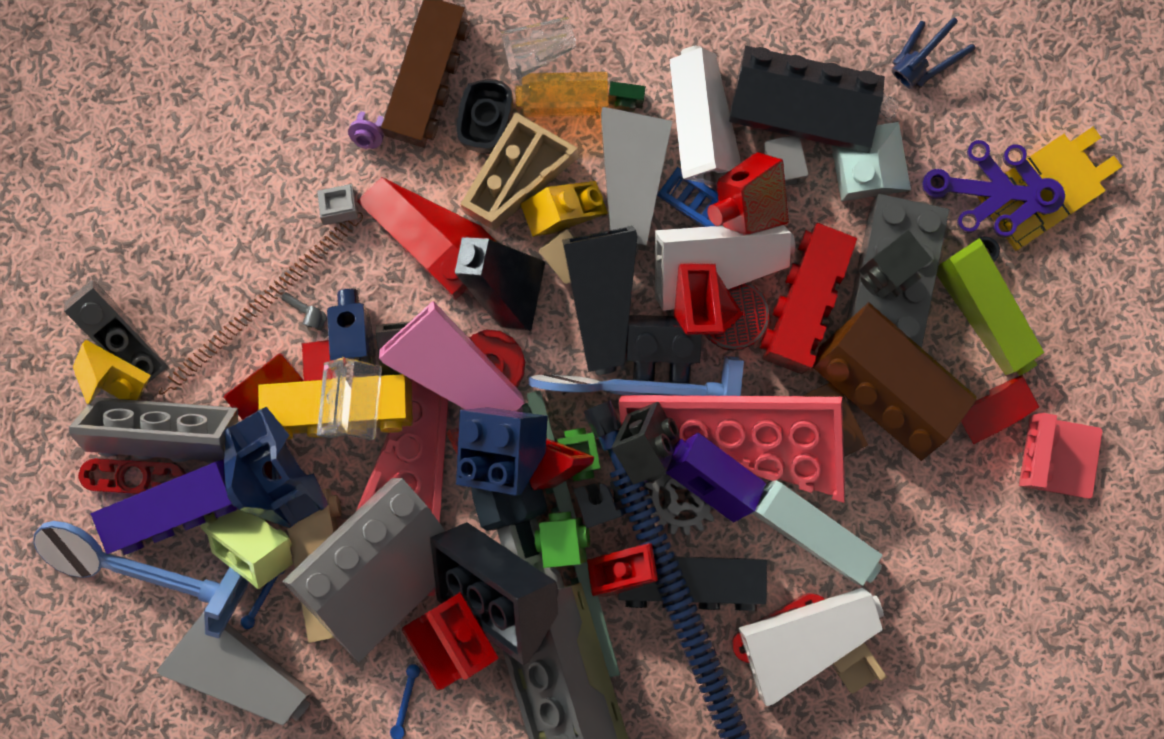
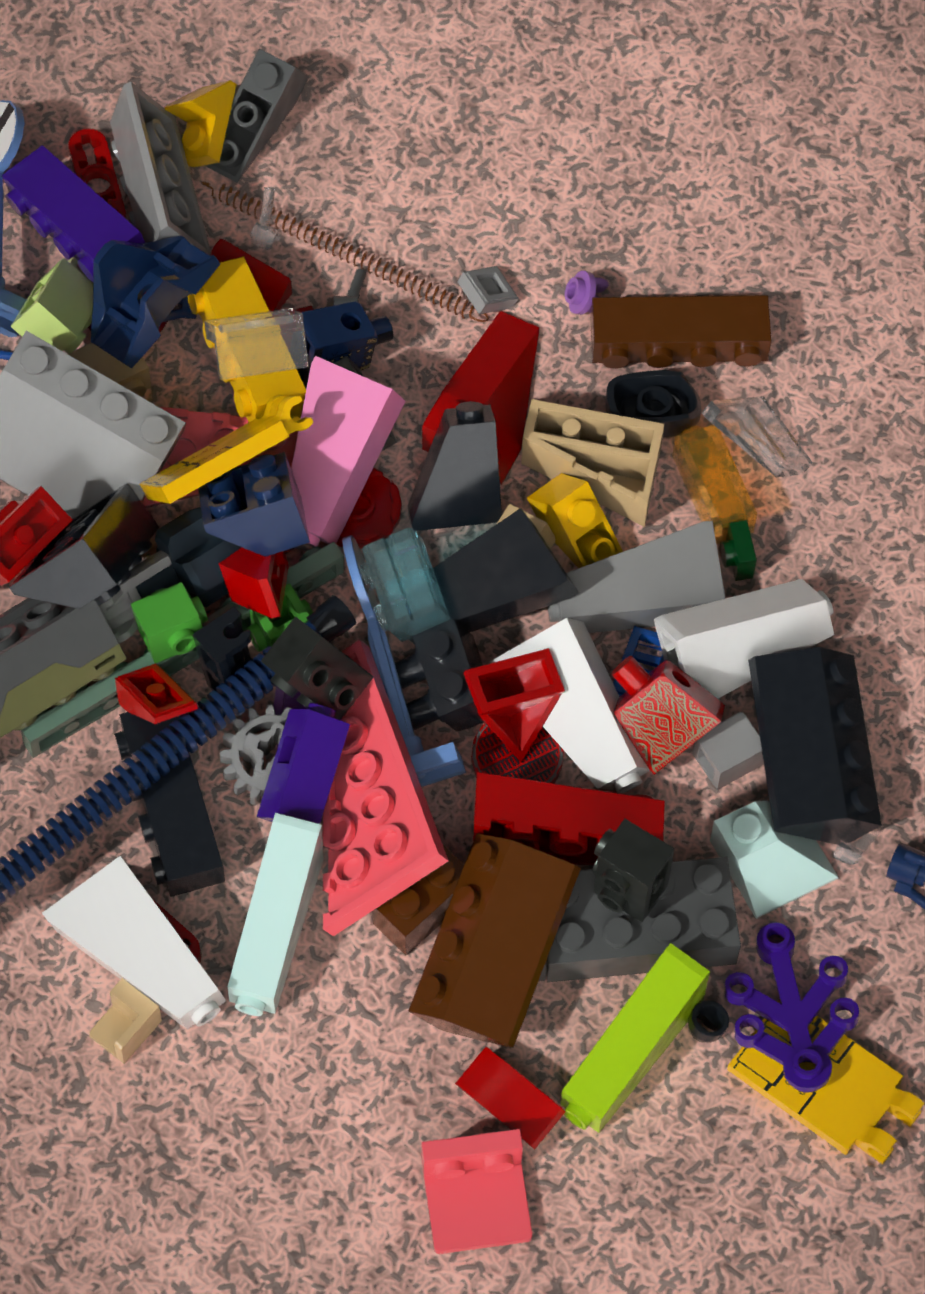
camera: 70 degrees right, 20 degrees down
(226, 360) = (262, 233): none -> clear hand
(444, 456) = (227, 451): none -> yellow tile
(592, 353) = (404, 584): none -> clear light blue brick

